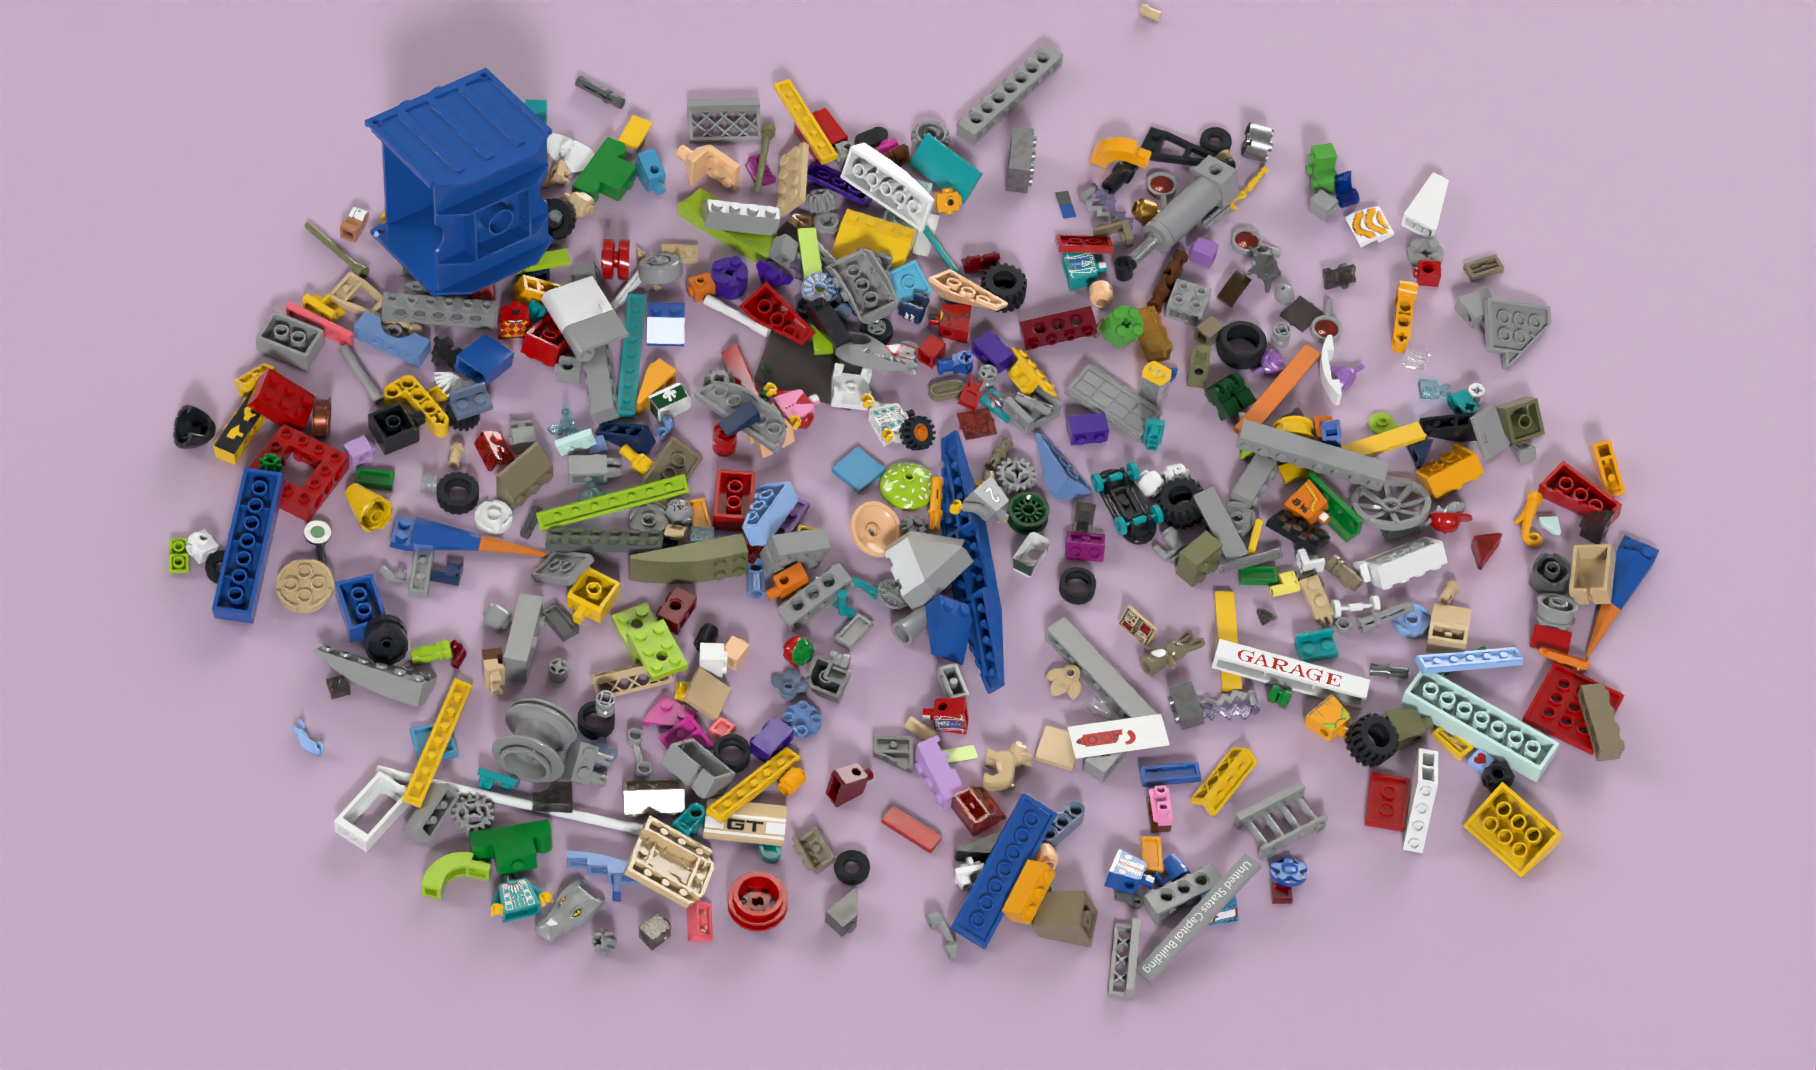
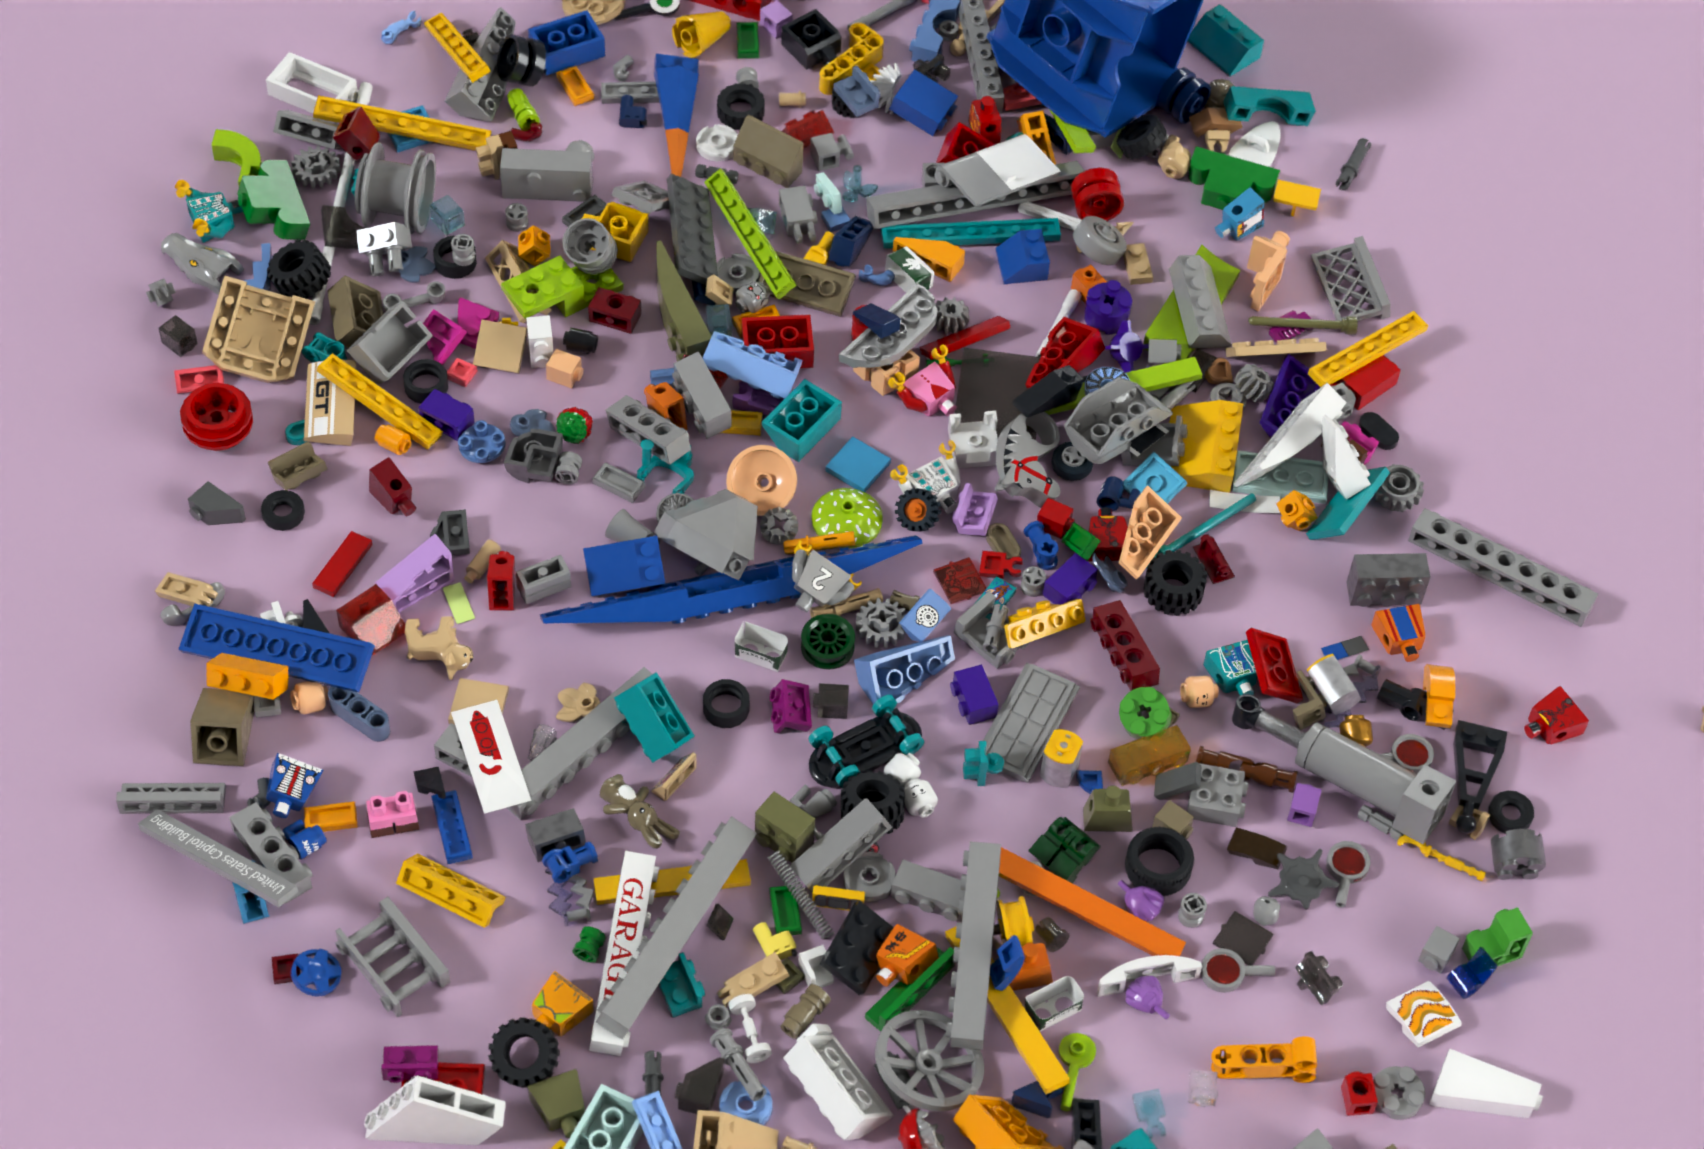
camera: 85 degrees right, 0 degrees up
(357, 688) = (457, 47): none -> yellow tile
(408, 611) = (575, 85): none -> light orange tile
(456, 772) = (356, 133): none -> dark red torso
(595, 815) = (299, 269): none -> black tyre
(603, 655) = (534, 245): none -> light orange brick
(634, 605) = (587, 234): none -> light grey wheel
(820, 492) = (802, 419): none -> teal slope
(918, 157) = (1341, 460): none -> white slope
(919, 400) = (974, 511): none -> lavender bracket
(932, 936) = (185, 590): none -> tan hinge
(961, 336) = (1080, 541): none -> green tile
(992, 325) = (1113, 577): none -> sand blue plate
(1021, 443) = (924, 616): none -> medium blue slope
(1059, 165) = (1400, 630): none -> orange torso
(1097, 626) = (654, 717): none -> teal slope
(1108, 210) = (1333, 684): none -> flat silver piece
(1131, 783) = (430, 781): none -> black tile
(1143, 96) = (1556, 718): none -> red torso
(1178, 319) = (1177, 781): none -> dark grey tile
(1211, 699) = (568, 861): none -> blue connector
(1280, 632) = (676, 927): none -> light grey brick
(1358, 428) = (1052, 992): none -> white piece
(1372, 814) = (408, 1061): none -> magenta bracket
(1399, 641) = (700, 1087): none -> clear smoke slope

